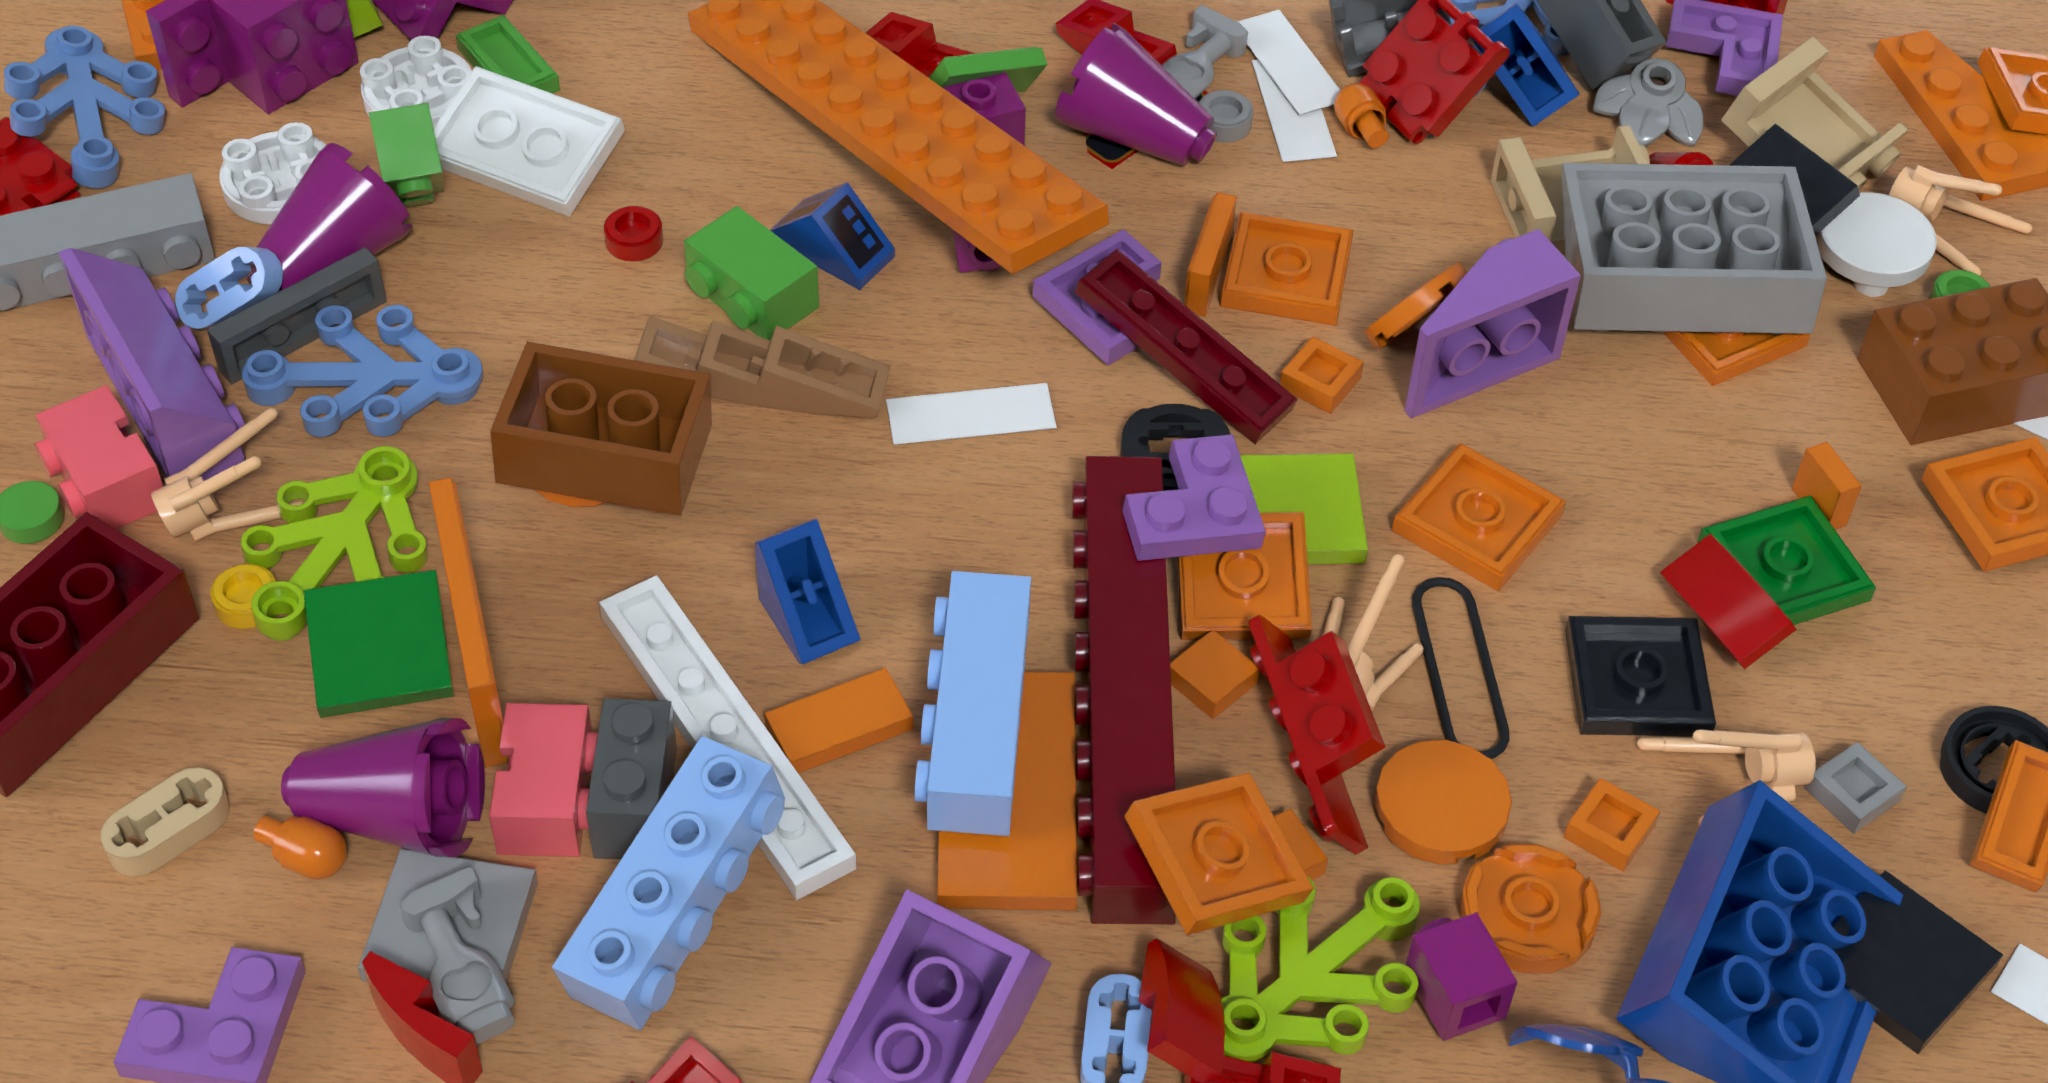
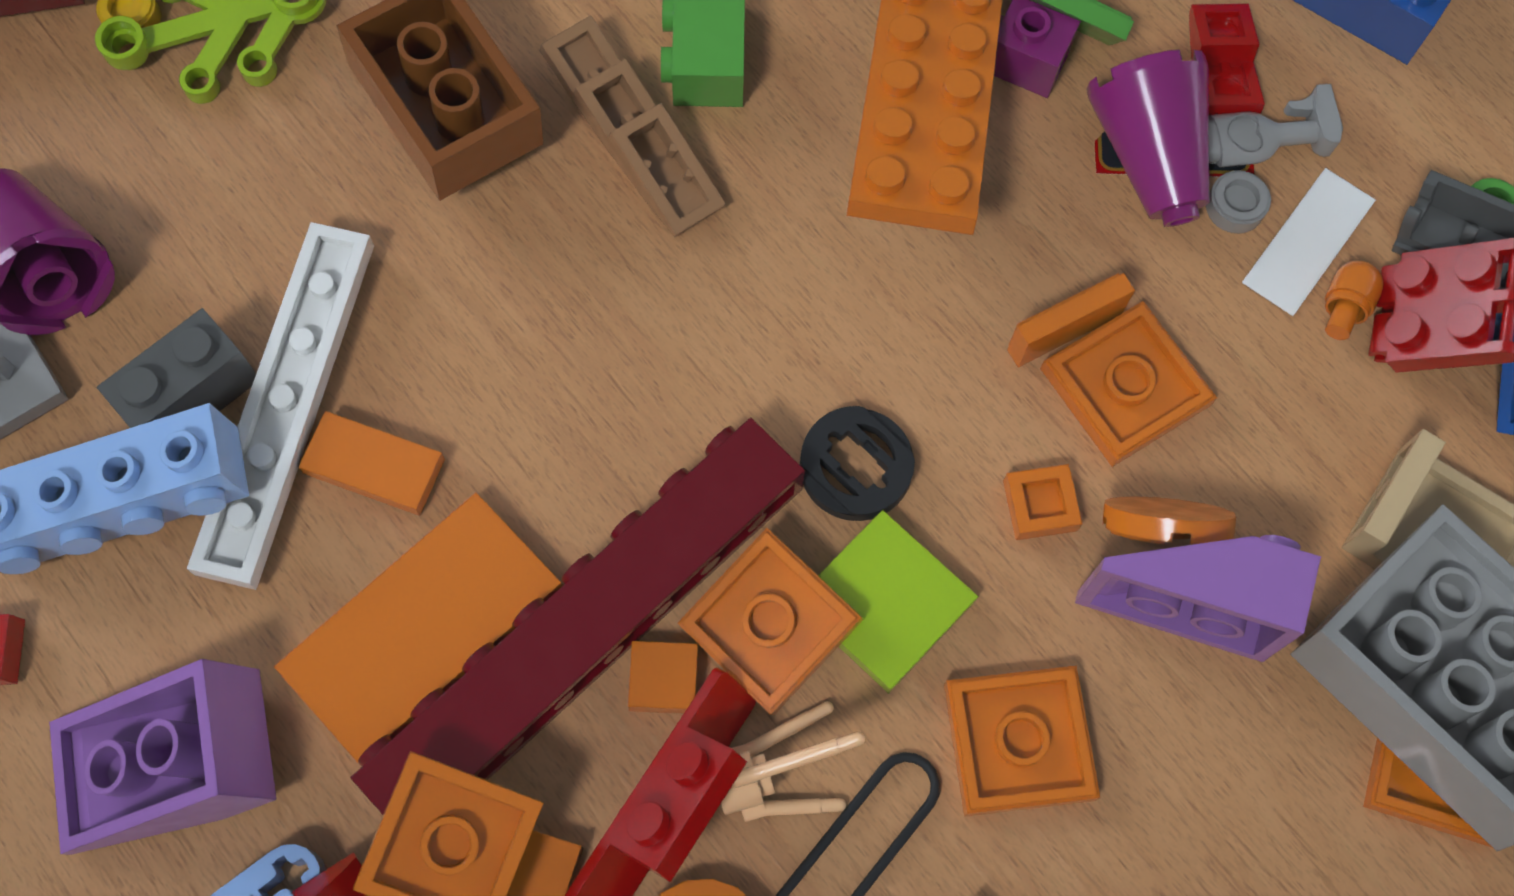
camera: 45 degrees right, 20 degrees up
(378, 643) = (155, 124): green tile -> none
(468, 620) = (195, 163): orange tile -> none
(545, 791) = (128, 322): coral brick -> none
(804, 592) = (447, 343): blue slope -> none
(837, 235) = (810, 59): blue slope -> none
(970, 413) = (748, 294): white sticker -> none
(977, 704) = (436, 550): light blue brick -> none
(1057, 294) = (936, 270): medium lavender plate -> none
(1186, 346) = (951, 385): dark red tile -> none
(1208, 512) = (780, 556): medium lavender plate -> none
(1290, 62) = (1354, 194): white sticker -> none

